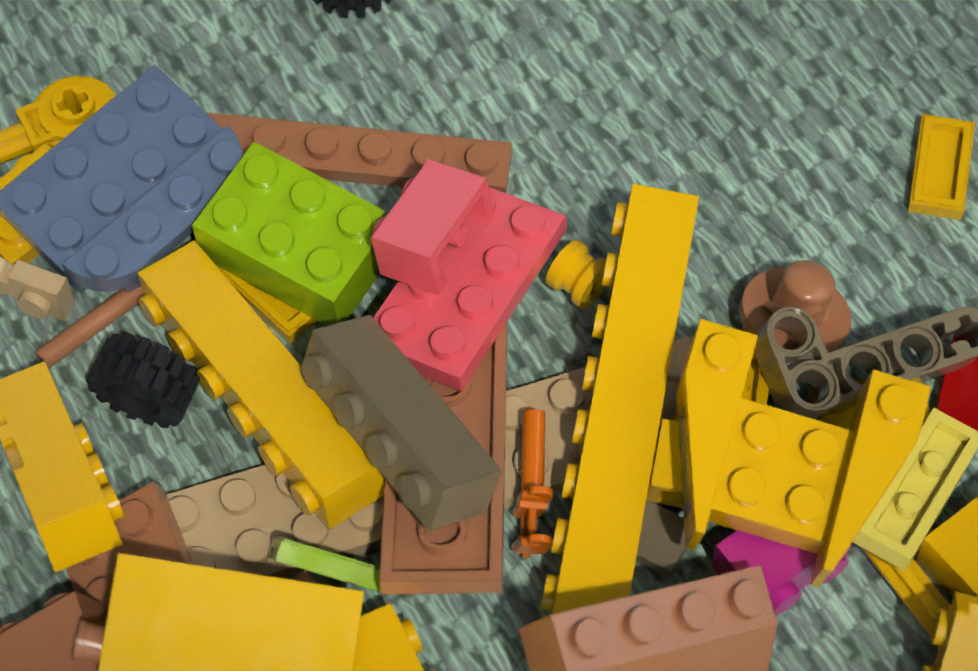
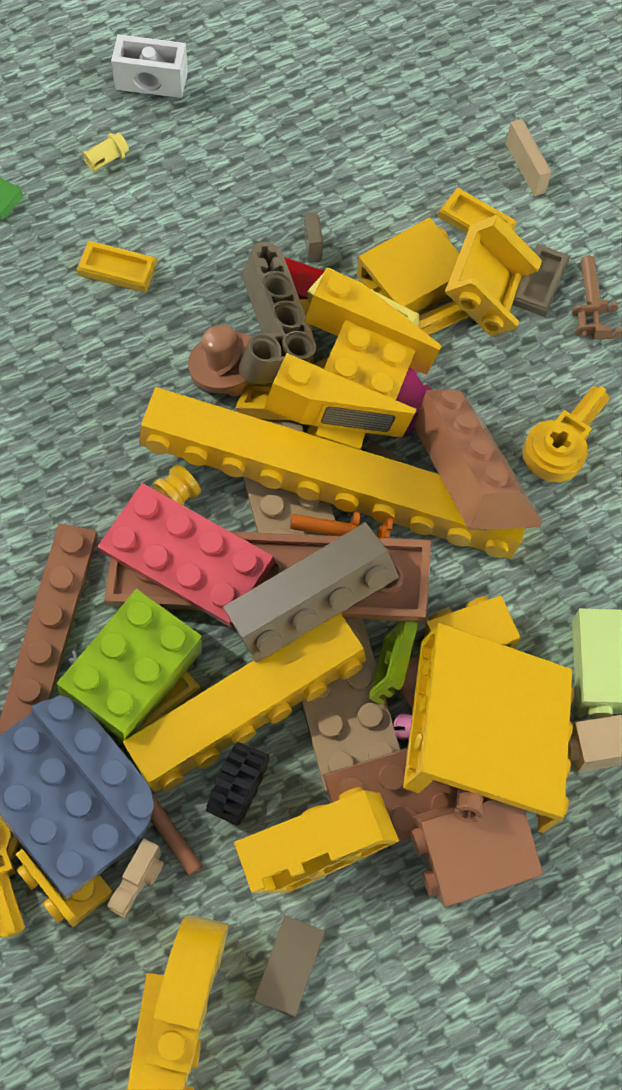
camera: 90 degrees left, 5 degrees up
(432, 226) = (153, 560): coral brick -> none

